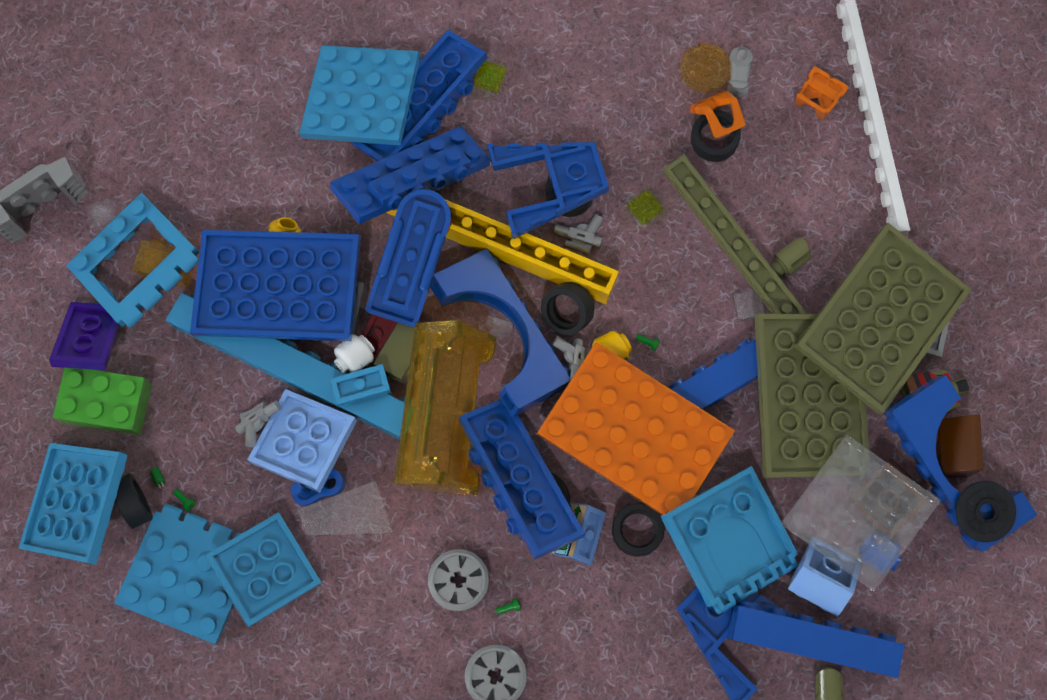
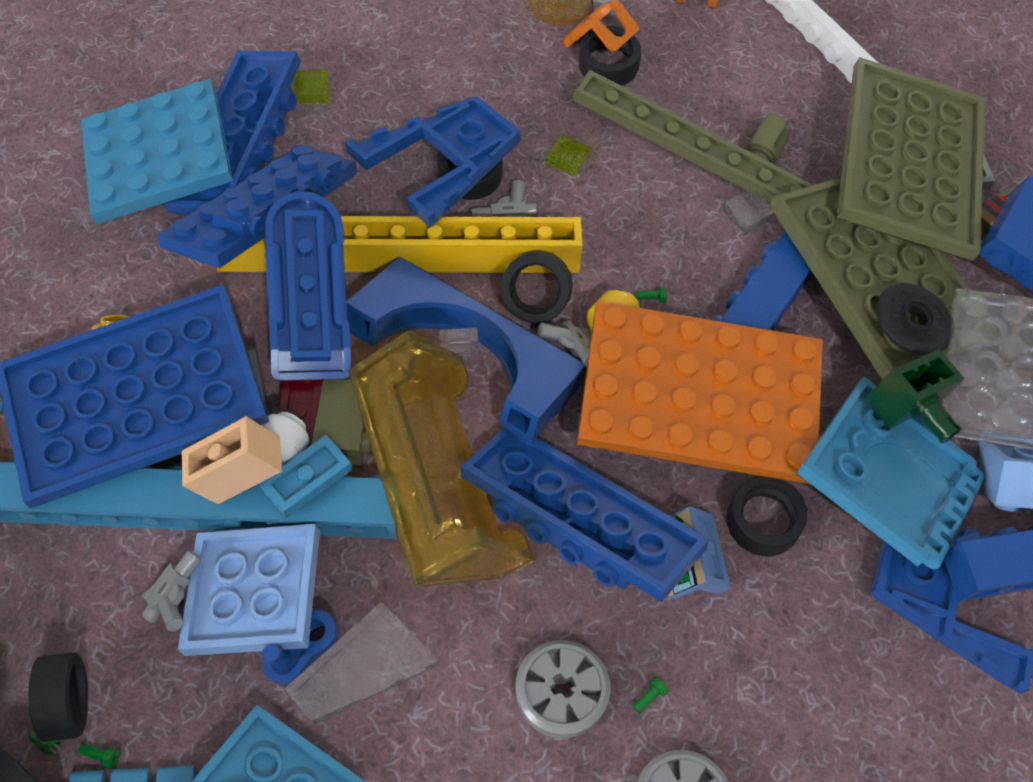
camera: 30 degrees left, 15 degrees down
(172, 459) = (58, 696): none -> black tyre
(317, 361) = (231, 460): none -> light nougat brick
(774, 496) = (917, 392): none -> dark green brick
(790, 442) = (894, 319): none -> black wheel

